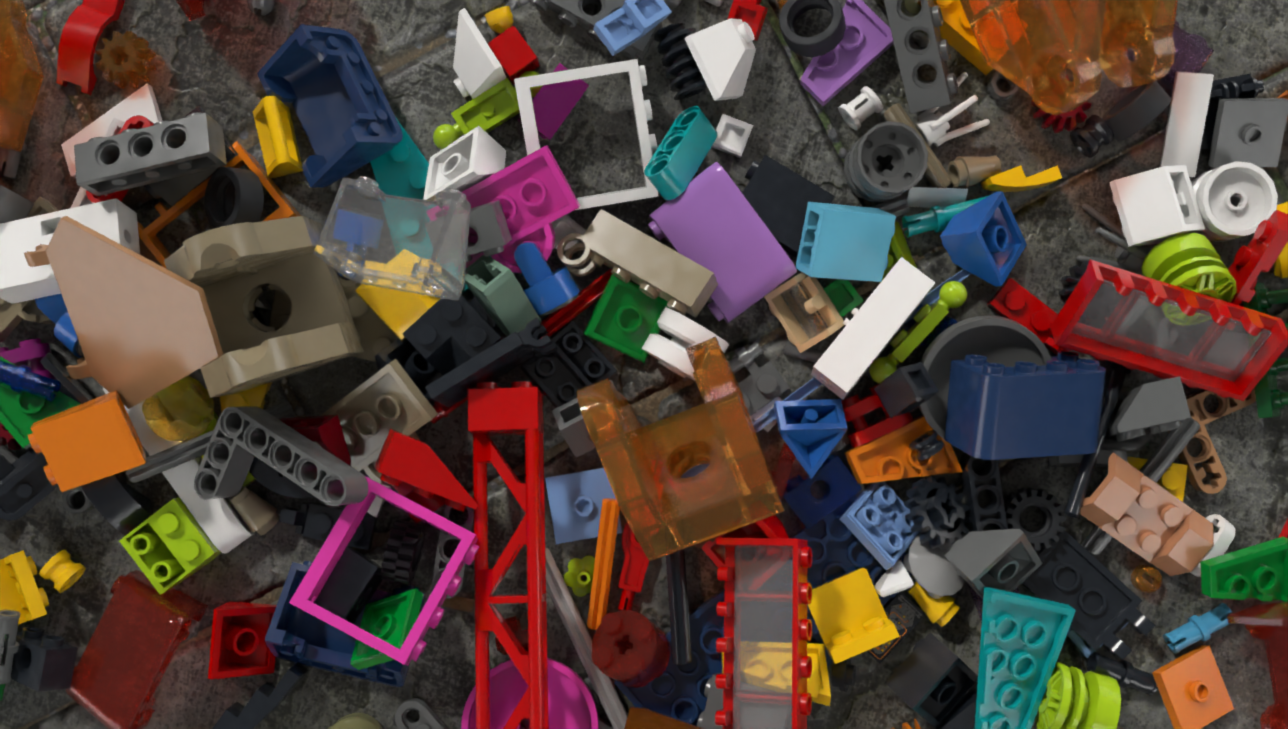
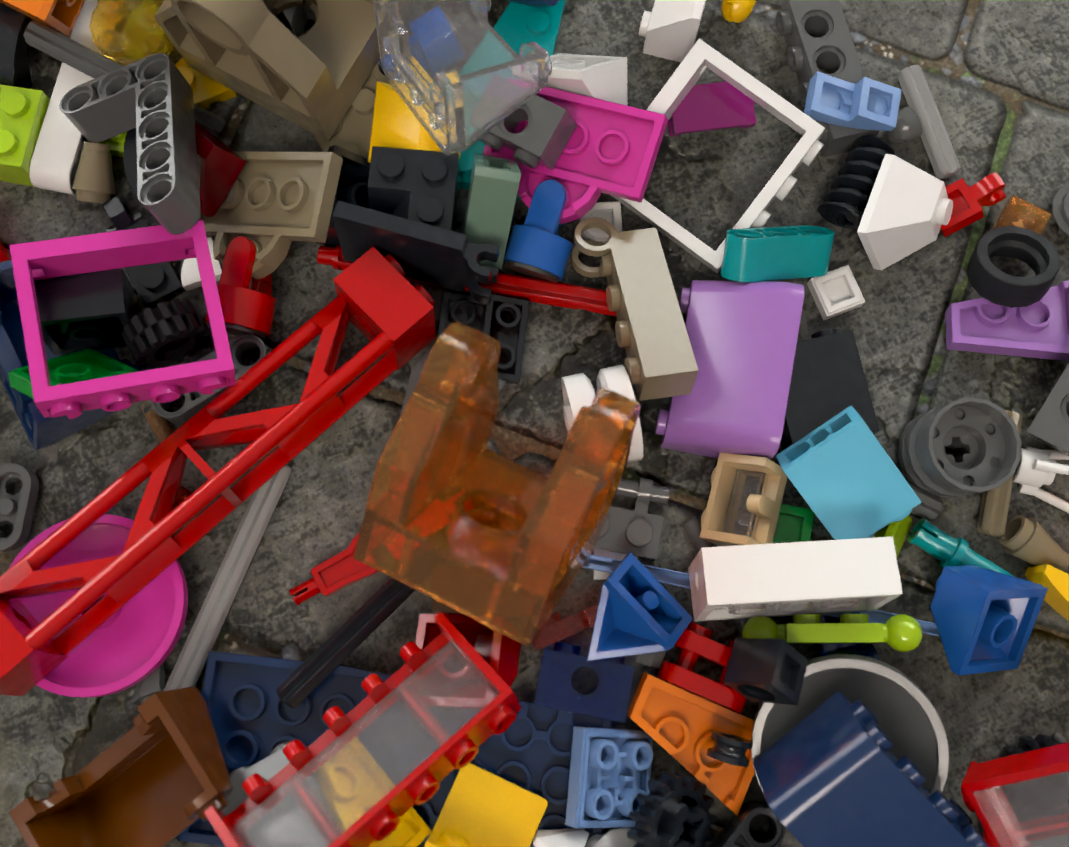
camera: 50 degrees right, 10 degrees down
(418, 465) = (258, 263): red slope -> none
(485, 110) = (647, 62): lime plate -> none
(513, 53) = (721, 31): red panel -> none
(577, 503) = (349, 461): medium blue plate -> none
(577, 568) = (303, 535): lime plant -> none
(603, 562) = (308, 541): orange axle -> none
(613, 648) = (254, 633): clear red brick -> none
(625, 318) = (575, 342): green plate -> none
(860, 108) = (982, 383): white bush -> none
(931, 197) = (965, 524): white sticker -> none
(1021, 306) = (958, 715): red hinge -> none

